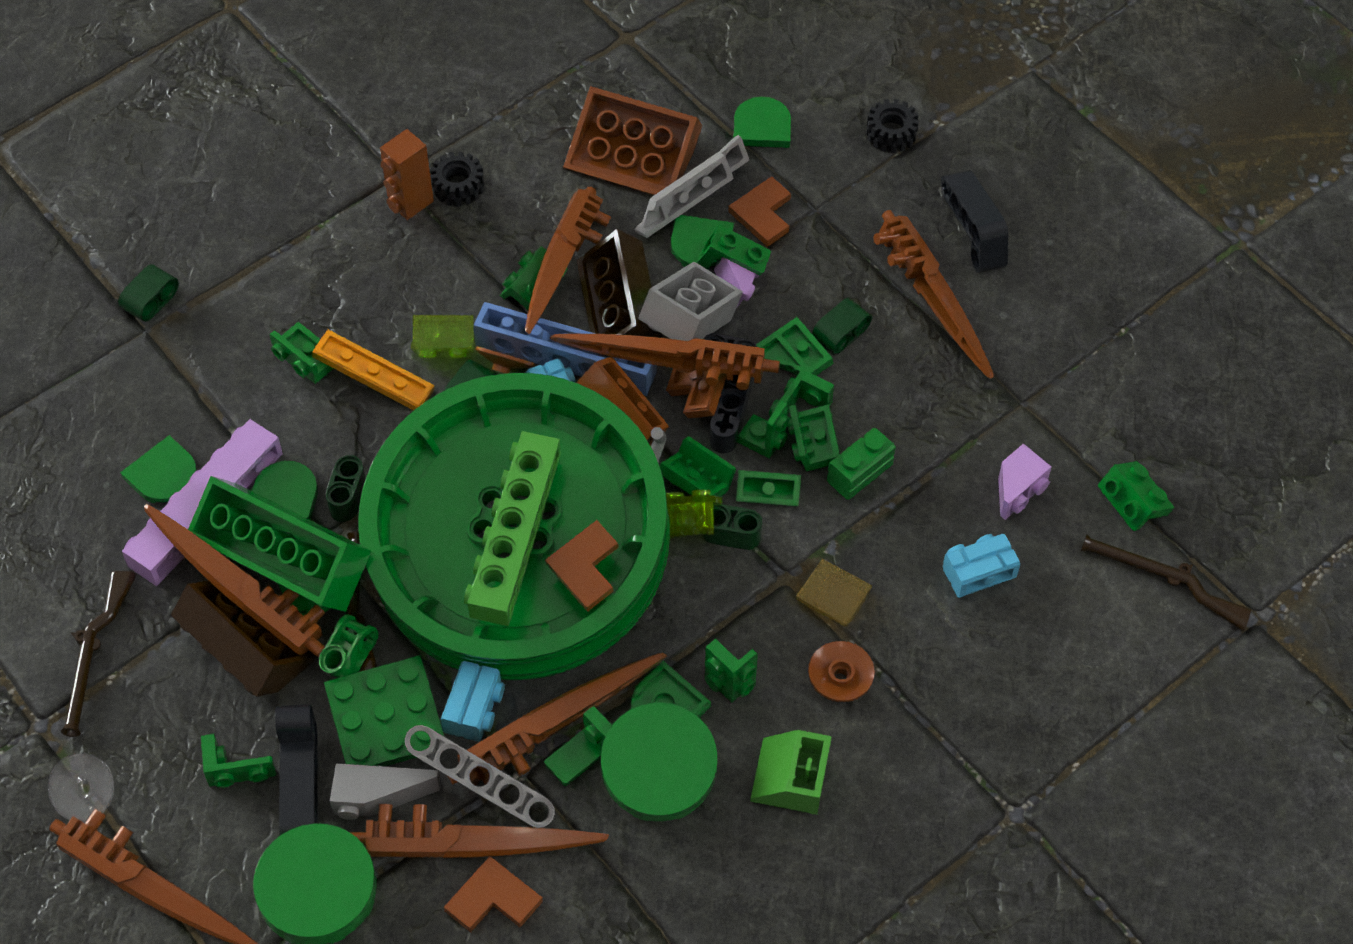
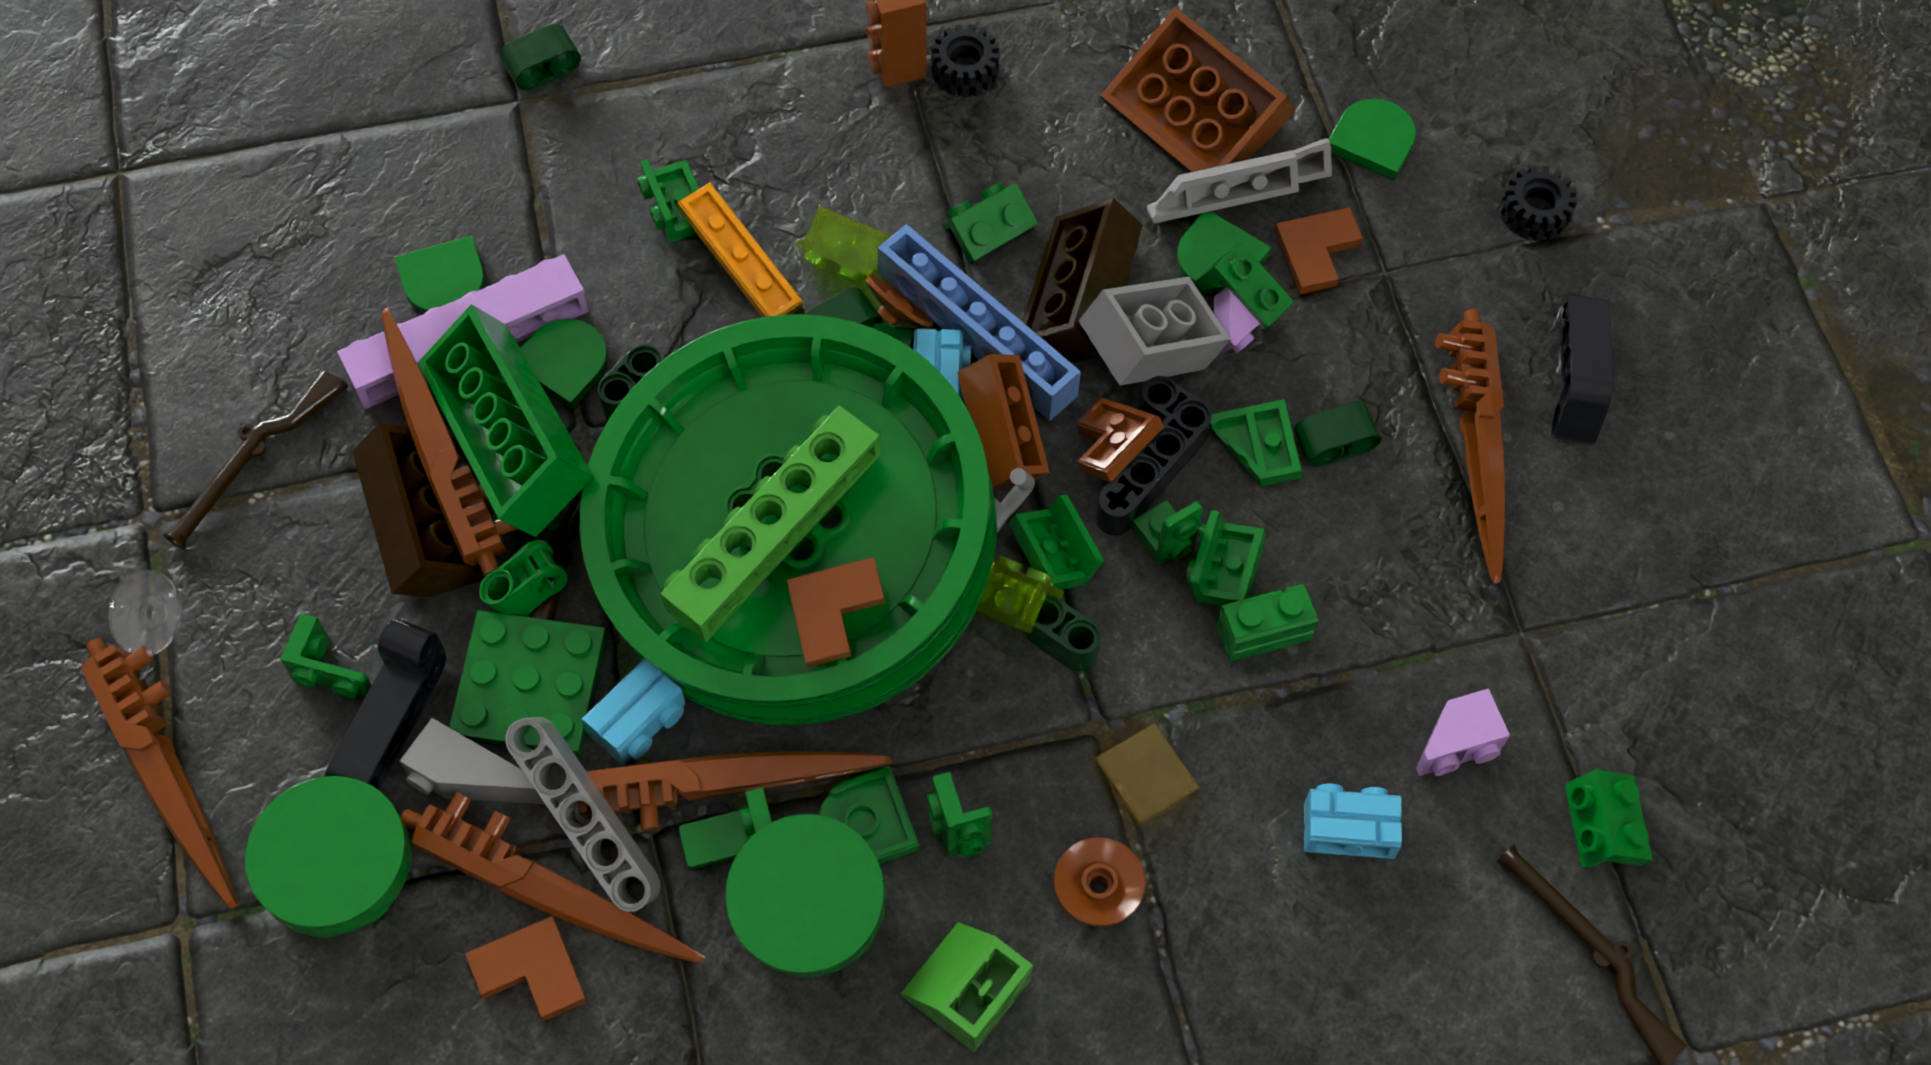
camera: 25 degrees right, 5 degrees up
(566, 240) = (1057, 183): dark orange piece -> none
(680, 354) = (1110, 392): dark orange piece -> none
(768, 488) = (1137, 602): green slope -> none
(808, 387) = (1254, 496): green bracket -> none

